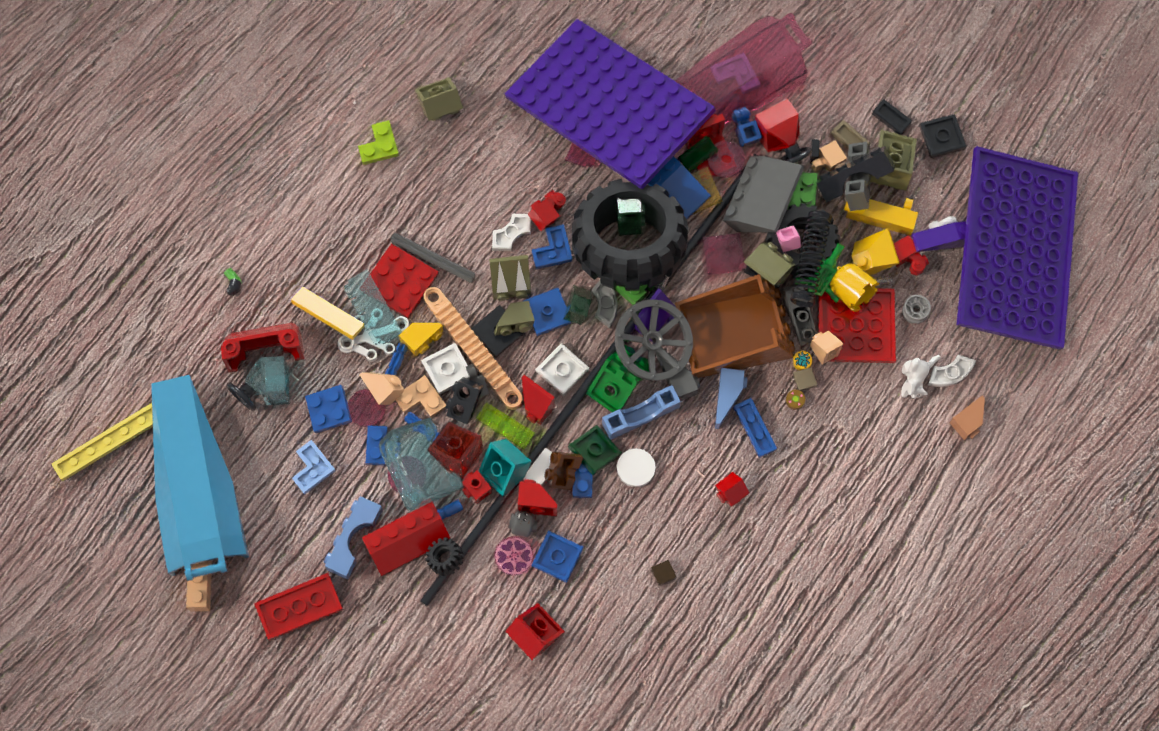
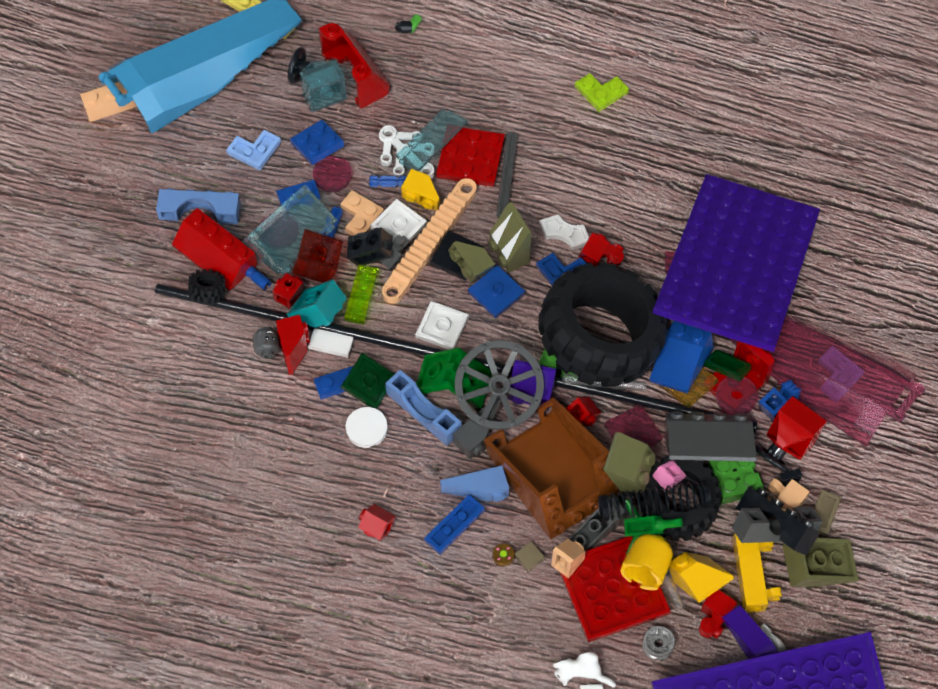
camera: 70 degrees right, 10 degrees down
(298, 606) = (116, 186): red plate -> none
(327, 313) = (410, 107): tile -> none
(384, 387) = (355, 175): light nougat slope -> none
(439, 99) = (670, 120): olive slope -> none
(513, 555) = (233, 349): clear pink tile -> none
(534, 631) = (162, 392): red slope -> none
(537, 401) = (395, 308): red slope -> none
(557, 556) = (245, 386): blue plate -> none
(562, 470) = (333, 358): reddish brown cylinder -> none
(578, 305) = (514, 312): clear green slope -> none
(606, 304) = (530, 340): light grey tile -> none
(630, 225) = (626, 321): clear green window -> none
(663, 572) = (266, 490): dark brown tile -> none
(695, 284) = (584, 411): none -> red brick
(802, 360) = (547, 546): tile -> none
(891, 117) = (870, 546): black tile -> none
(942, 136) = (875, 605): black plate -> none

